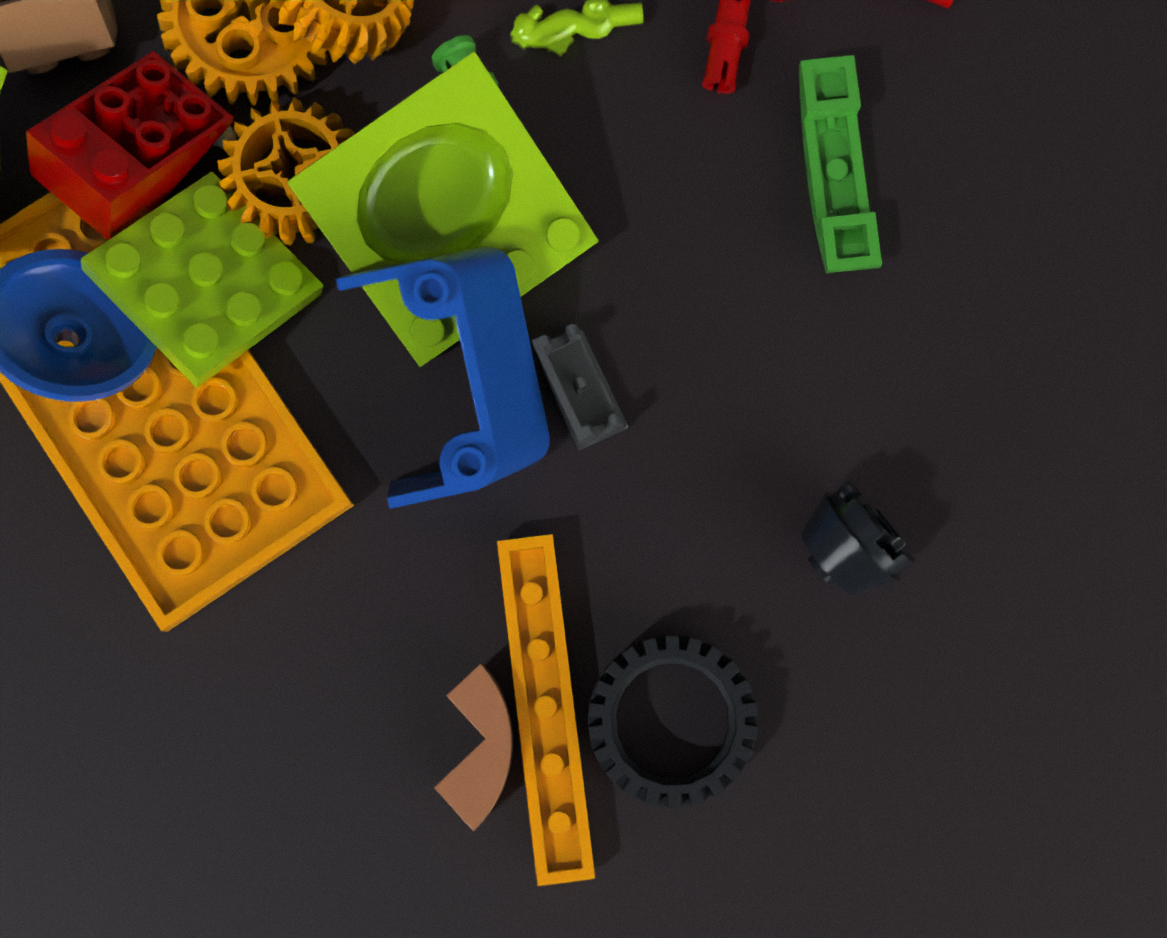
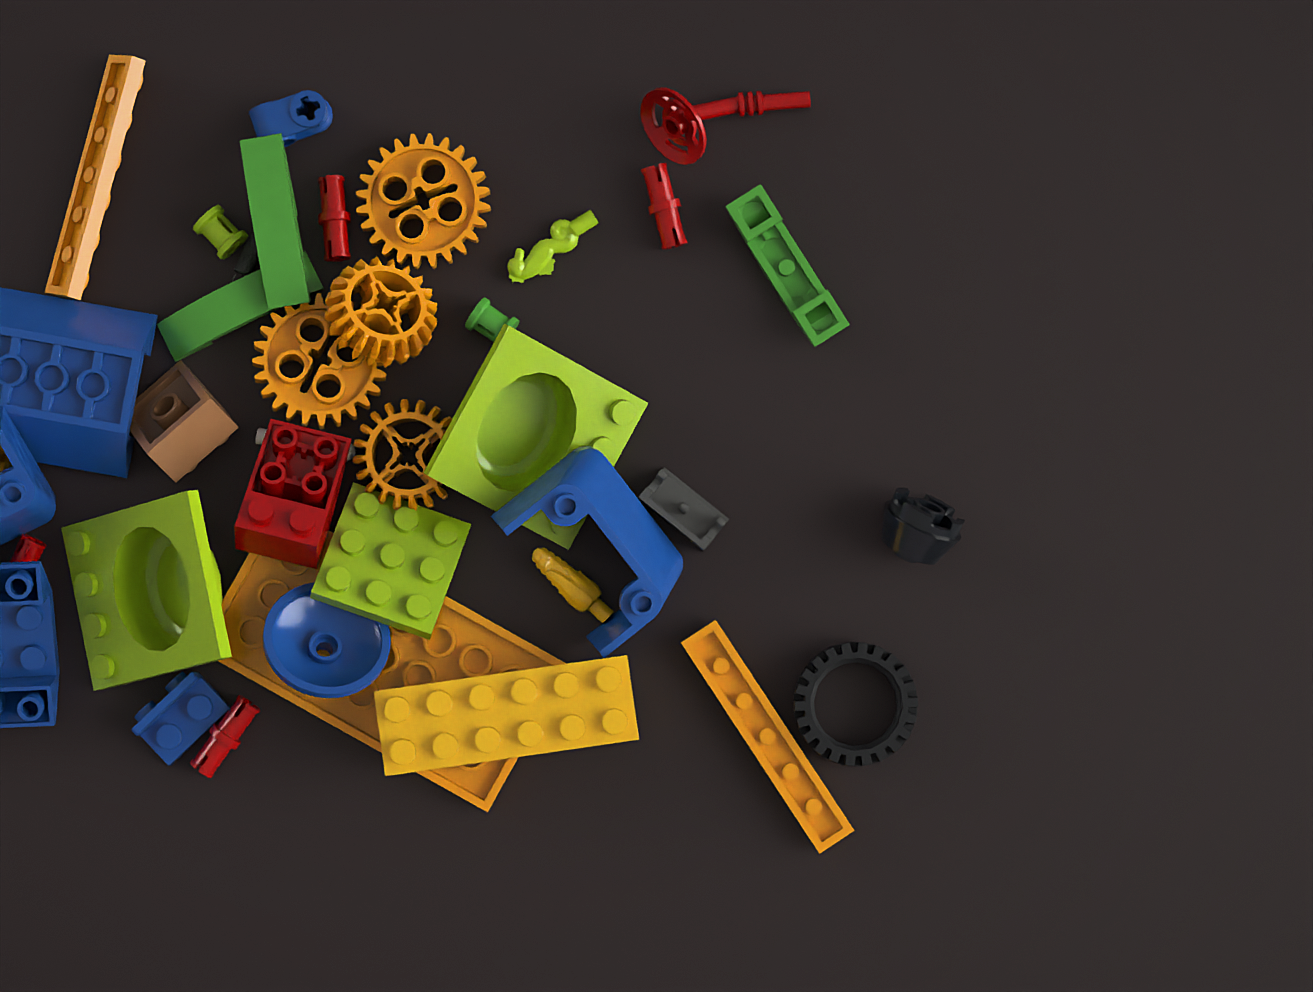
camera: 25 degrees left, 5 degrees up
(237, 521) = (506, 715): none -> yellow brick
(404, 411) = (572, 584): none -> yellow piece
(481, 777) = (747, 802): nougat brick -> none

